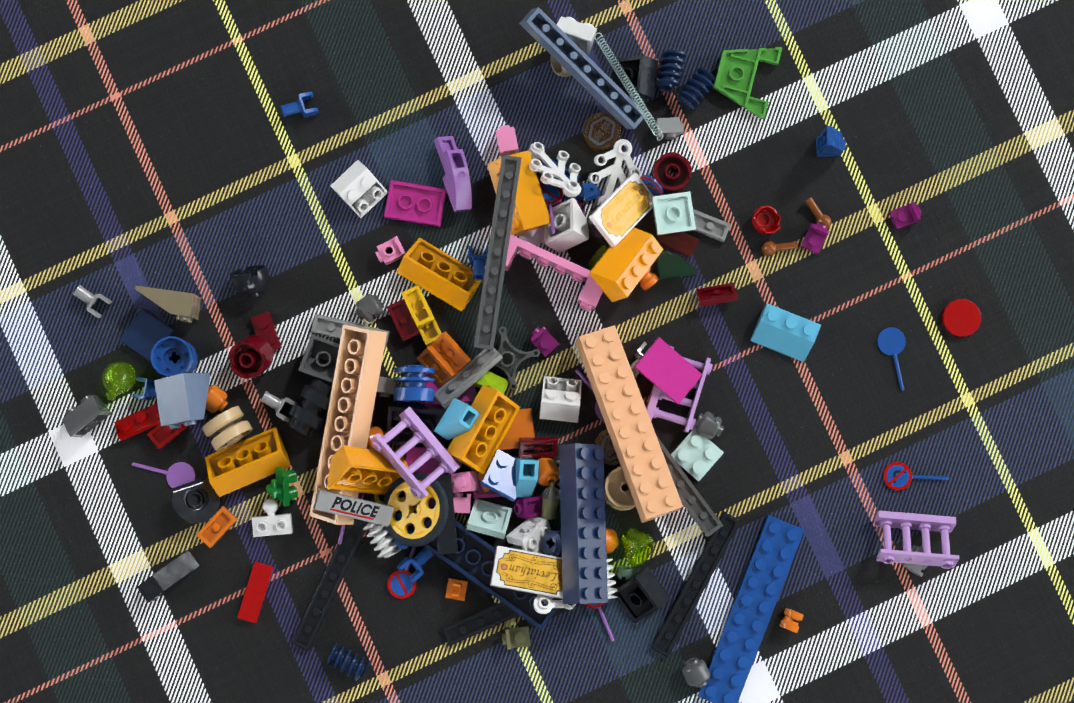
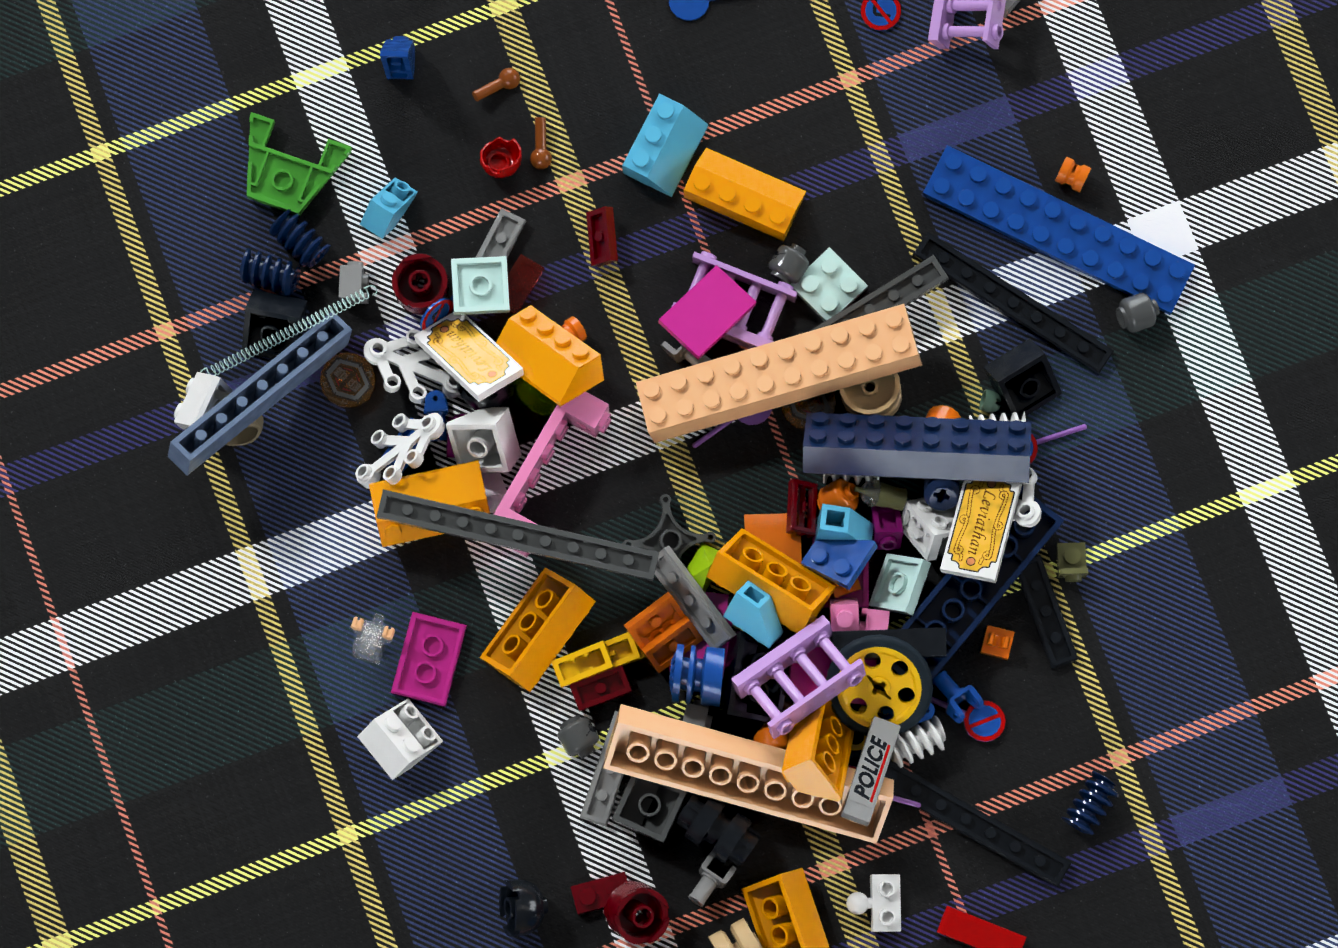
camera: 80 degrees left, 5 degrees down
(280, 487) = (832, 881): green hips -> none
(298, 107) = (268, 820): blue piece -> none
(398, 251) = (497, 687): bright pink brick -> none
(425, 163) = (371, 638): none -> clear piece
(457, 174) = (395, 592): medium lavender slope -> none
(478, 263) = (525, 572): blue piece -> none
(507, 140) = (348, 517): bright pink brick -> none
(543, 341) = (648, 488): magenta bracket -> none
(552, 195) = (438, 457): piece -> none
(560, 399) = (735, 470): white slope -> none
(636, 546) = (953, 379): clear neon green piece -> none
(673, 267) = (556, 293): clear green slope -> none
(723, 146) = (388, 207): none -> medium azure slope
(756, 390) = (744, 194): none -> light orange slope
(814, 237) = (531, 92): magenta bracket -> none

